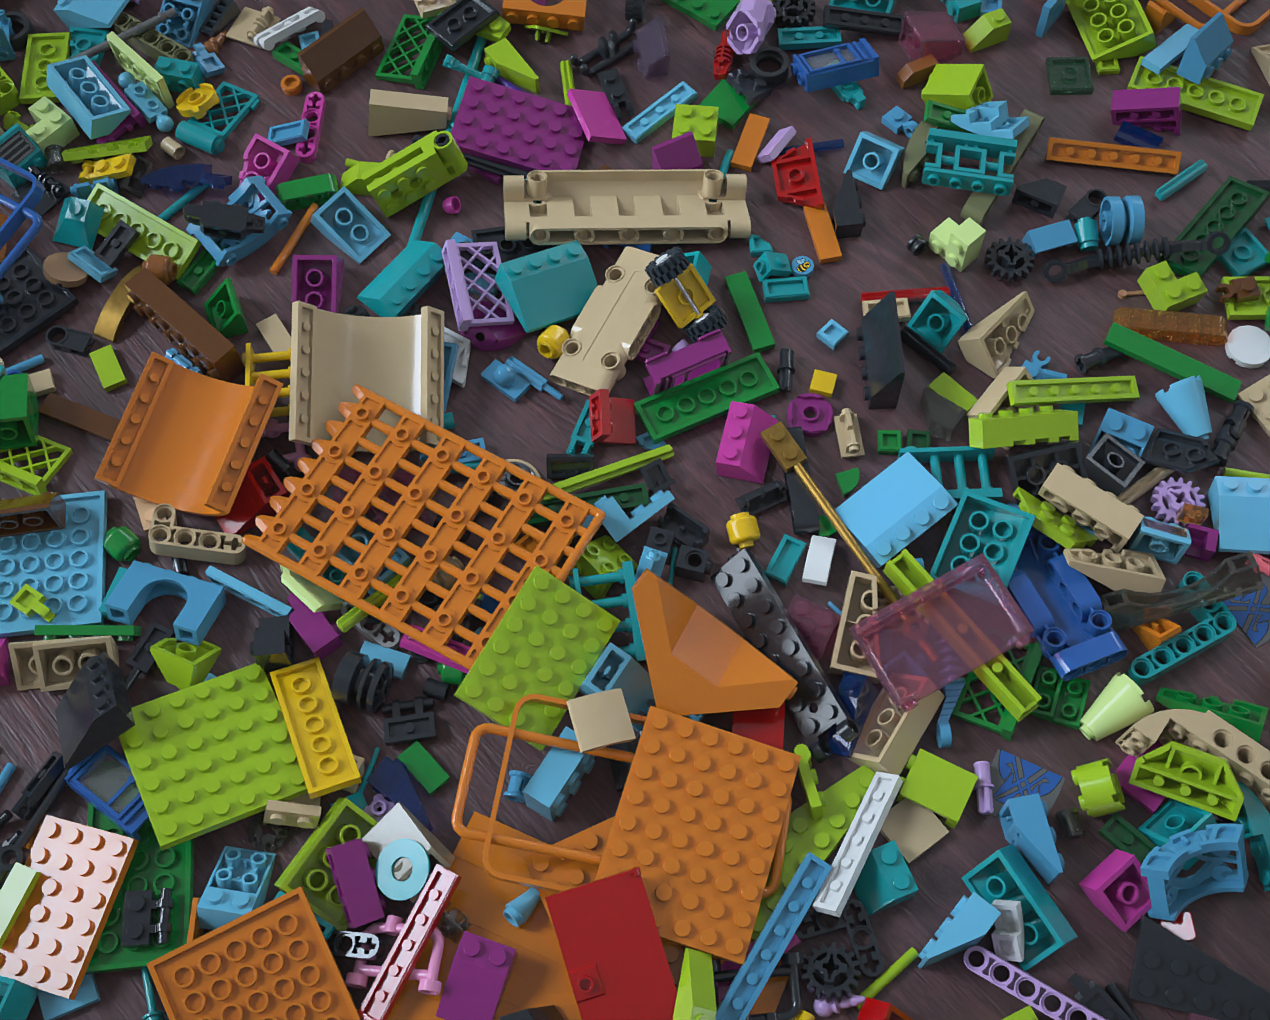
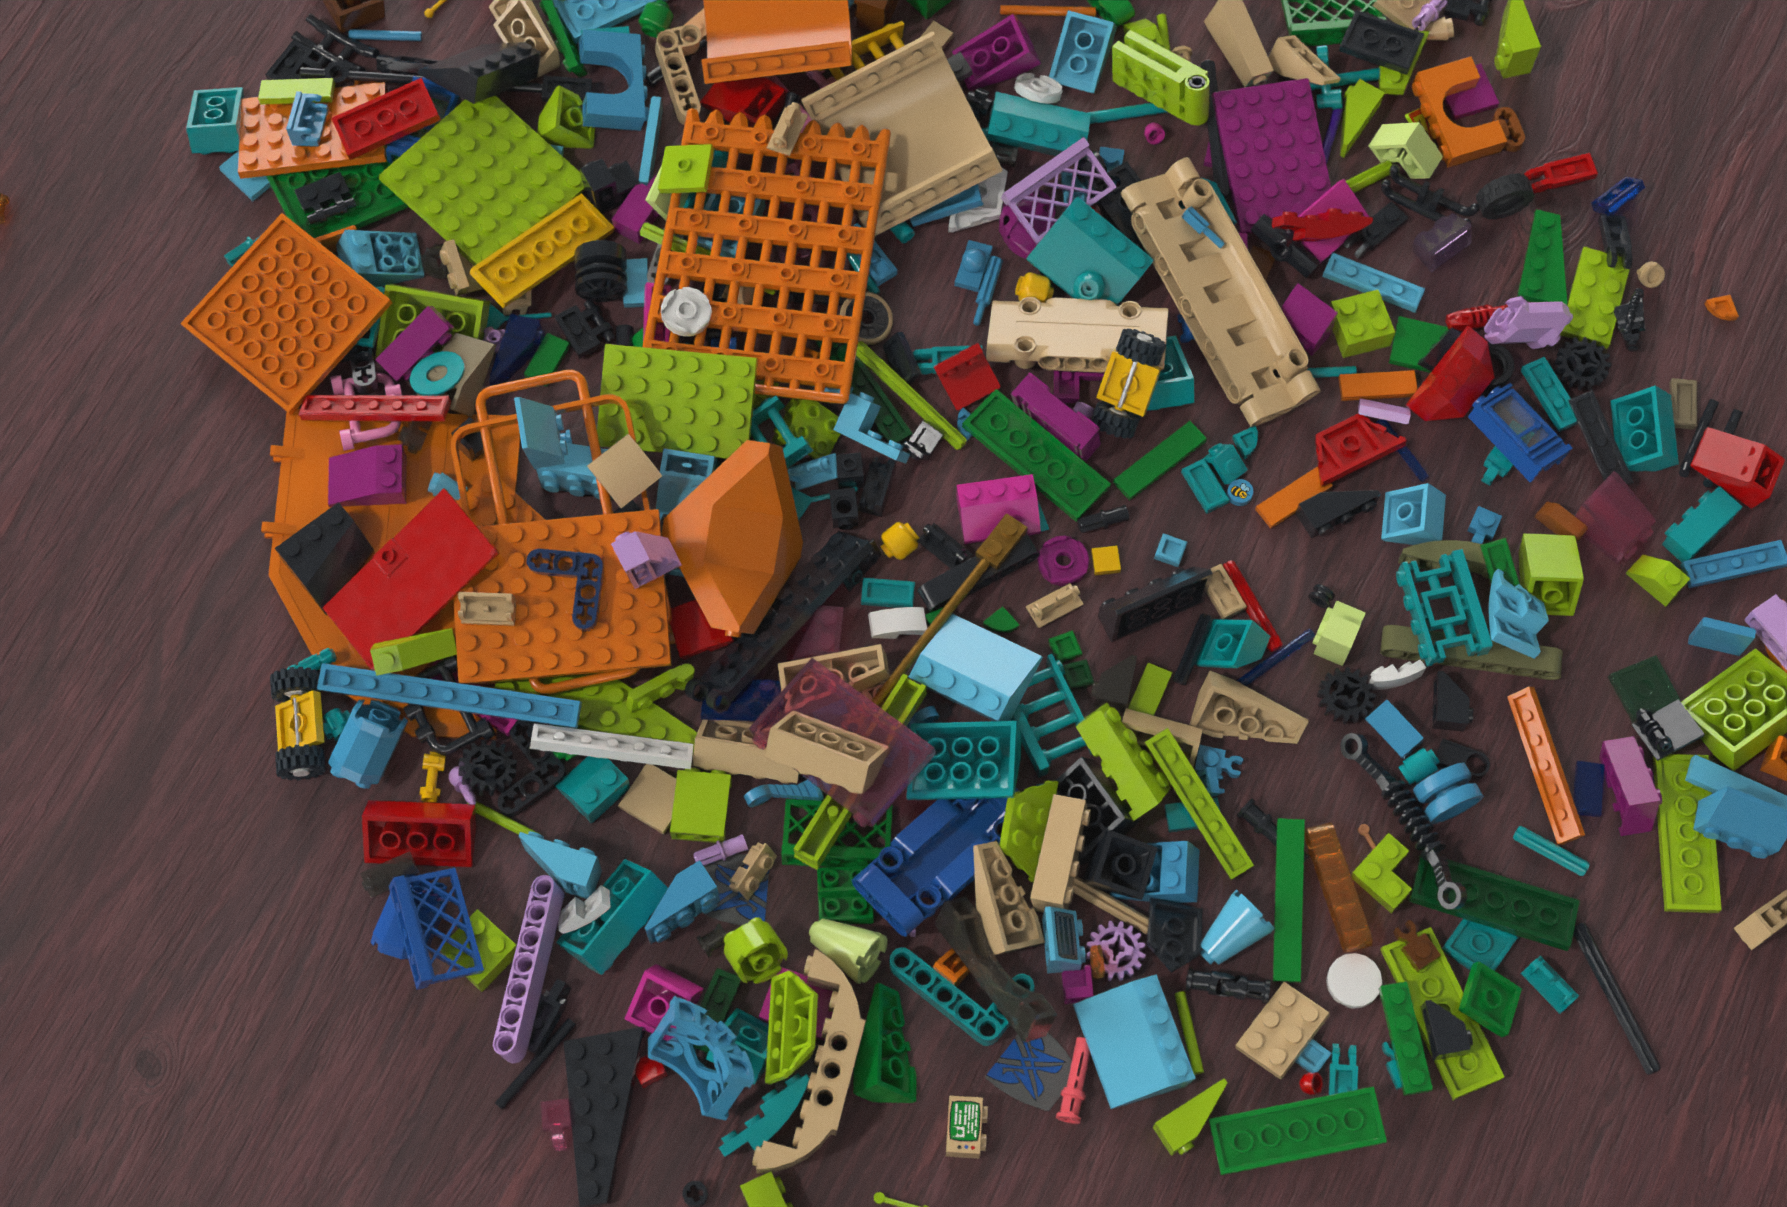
camera: 65 degrees right, 5 degrees up
(52, 902) = (306, 120): none -> dark azure hinge
(99, 820) = (385, 119): none -> red plate
(306, 561) = (686, 168): none -> lime plate
(314, 462) = (787, 129): none -> tan hinge
(367, 268) = (1038, 89): none -> white tile
(452, 79) = (1297, 61): none -> tan slope
(454, 613) = (686, 311): none -> white tile
(477, 868) = (472, 443): none -> black panel
(536, 780) = (540, 433): none -> medium azure slope
(558, 41) = (1408, 146): none -> yellowish green brick
(564, 194) = (1200, 225): none -> dark azure axle
(570, 296) = (1089, 279): none -> teal plate
(603, 152) = (1283, 247): none -> black piece
(605, 116) = (1323, 225): none -> red slope
(685, 799) = (577, 571): none -> dark blue beam
(687, 902) = (487, 608): none -> tan hinge
(707, 731) = (645, 556): none -> lavender wedge
(774, 87) = (1455, 380): none -> red wedge
(946, 647) = (826, 752): none -> tan slope
(1005, 218) = (1389, 677): none -> white slope
(1019, 773) = (759, 860): none -> tan hinge
(1113, 70) = (1666, 729): none -> hinge

